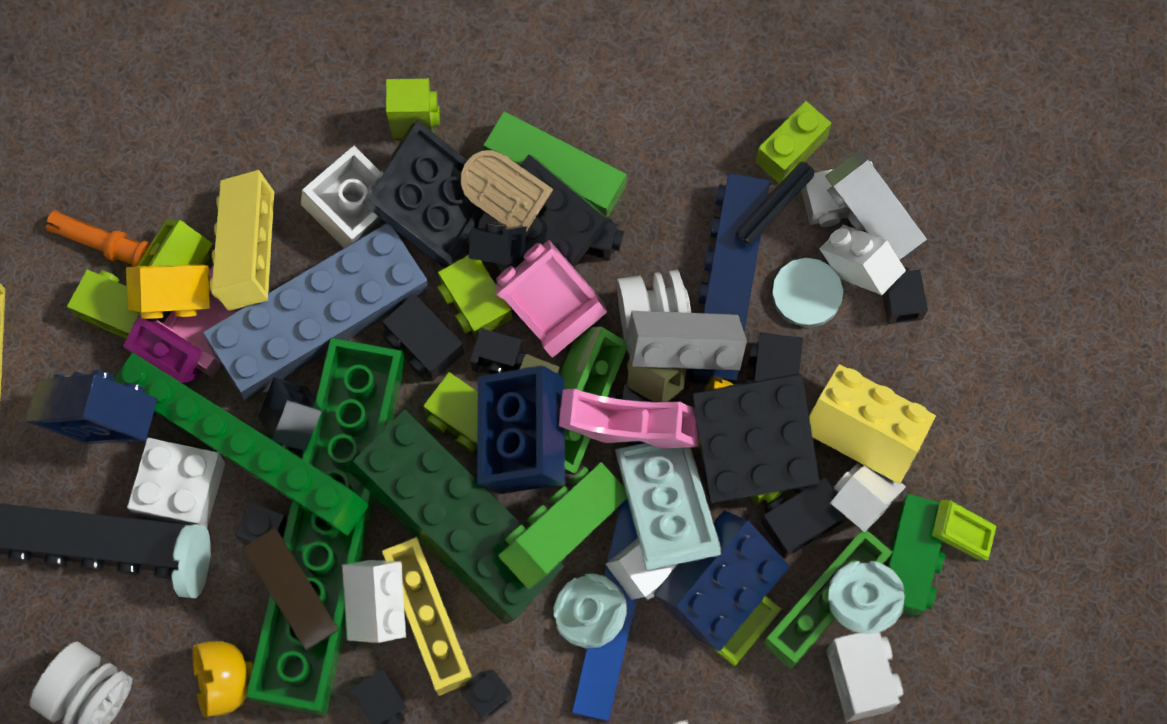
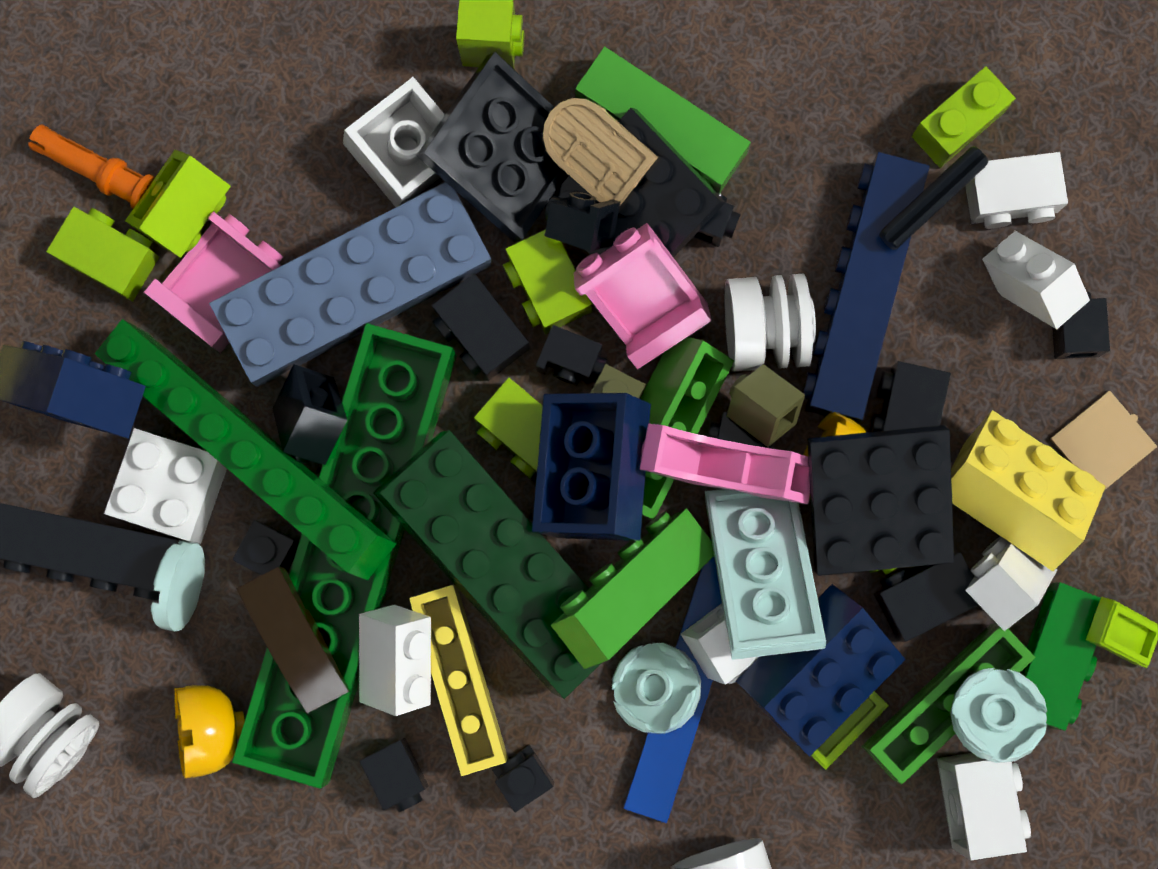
camera: 10 degrees right, 10 degrees up
(164, 349) = (161, 318): magenta panel -> none
(167, 289) = (169, 243): yellow brick -> none
(243, 241) = (266, 188): light yellow brick -> none
(685, 340) = (807, 370): light grey brick -> none
(807, 292) = (959, 311): light aqua tile -> none
(873, 204) = (1058, 210): brick -> none
(934, 383) = (1104, 440): none -> tan piece

